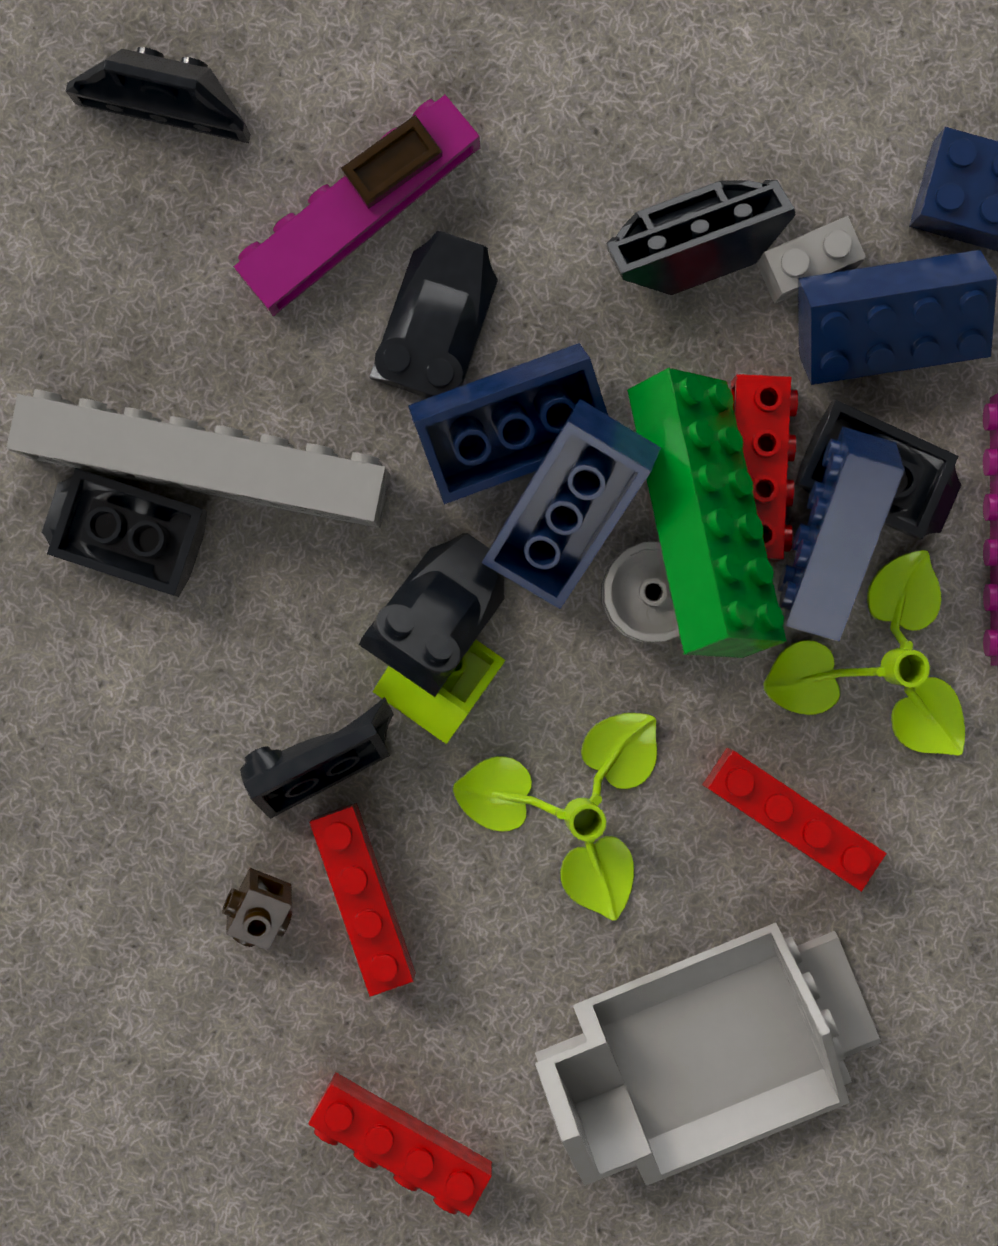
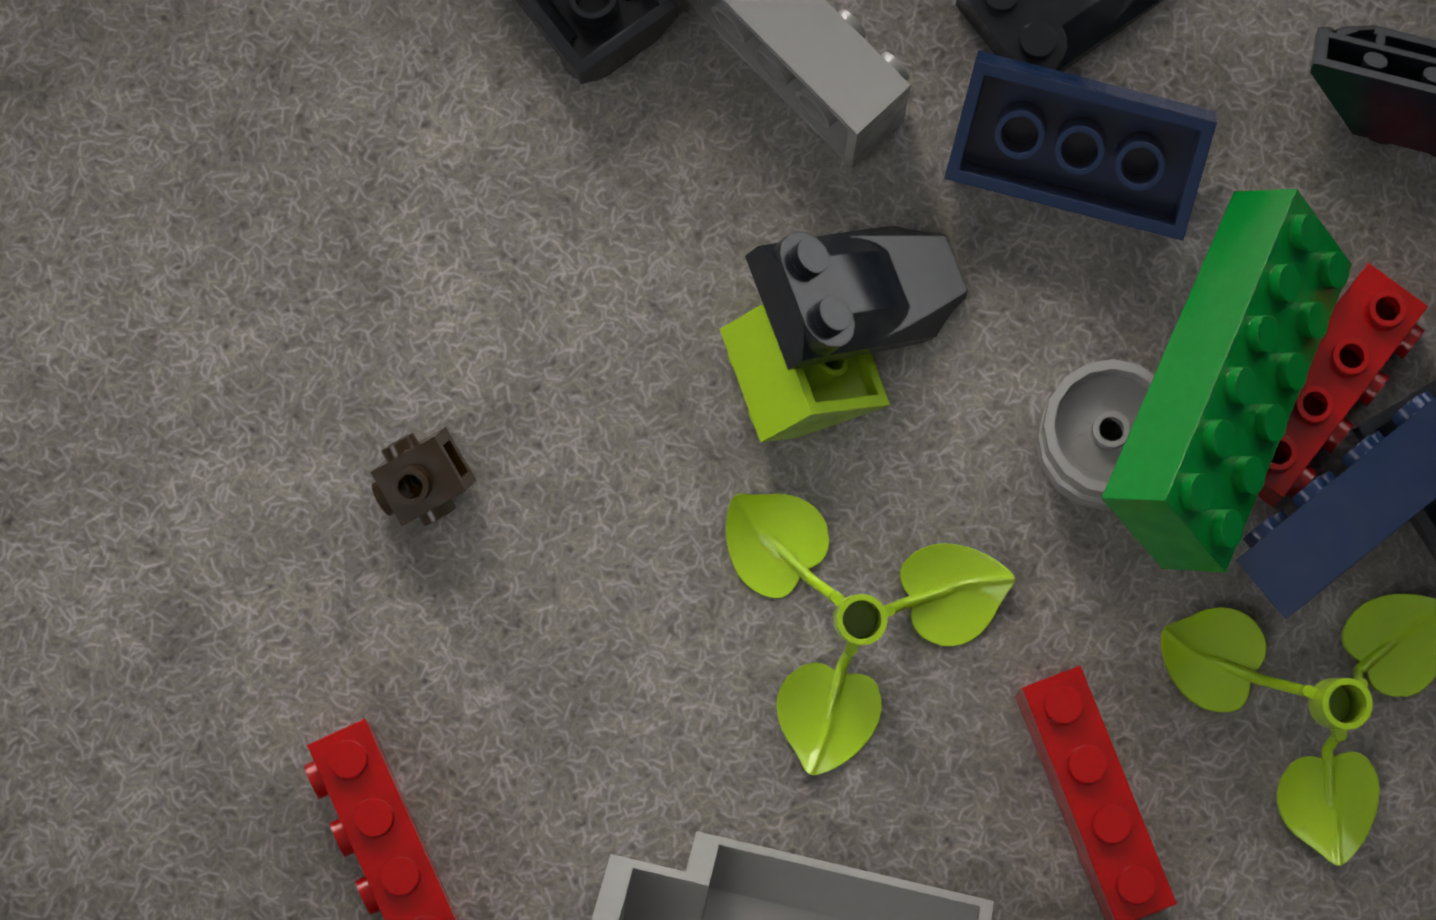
camera: 30 degrees right, 10 degrees down
(291, 776) = (606, 363): black slope -> none
(363, 899) = (546, 547): red brick -> none
(571, 504) = (1085, 266): dark blue brick -> none

